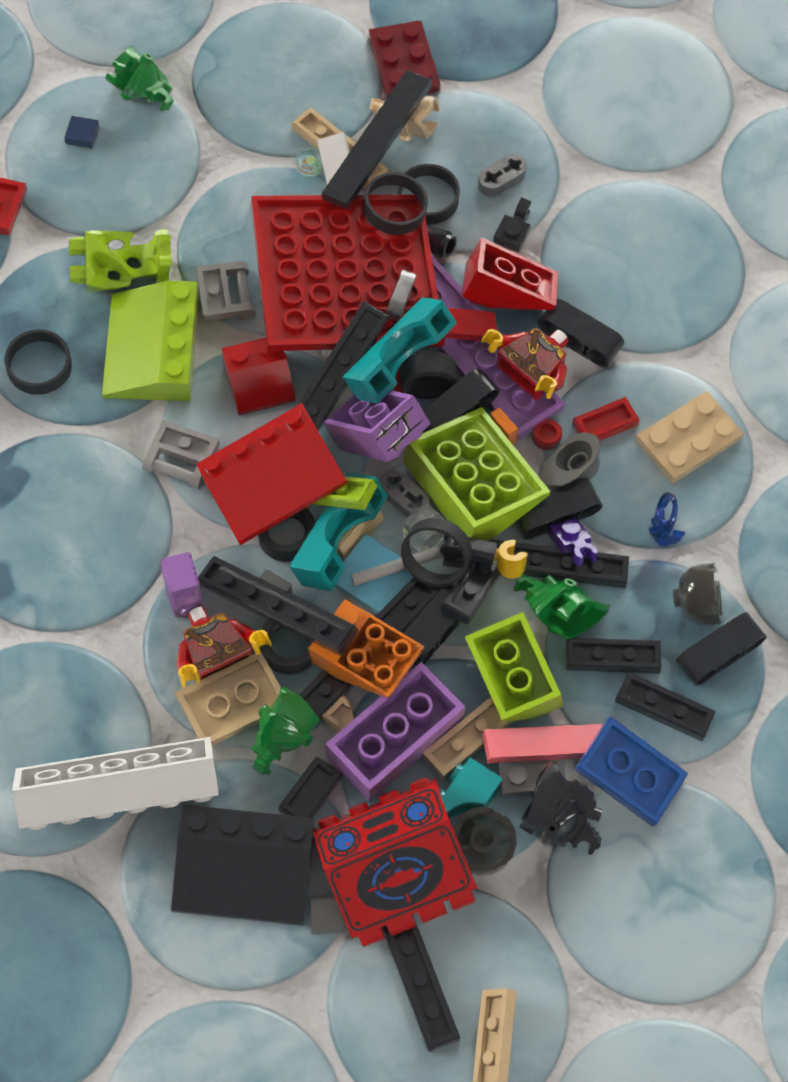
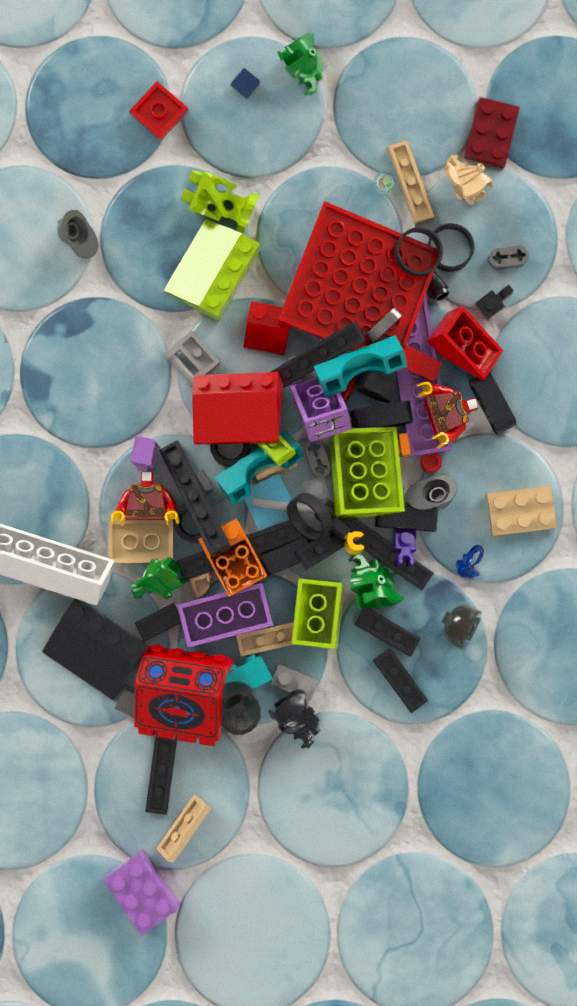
camera: 25 degrees right, 20 degrees up
(35, 336) = (121, 229): black tyre -> none
(216, 295) = (272, 251): light grey plate -> none
(333, 153) = (401, 194): white tile -> none
(376, 139) = (431, 197): black tile -> none
(538, 743) = (313, 669): coral tile -> none
(607, 420) = (474, 472): red tile -> none
(631, 771) = (354, 712): blue tile -> none
(721, 648) = (455, 663): black beam -> none

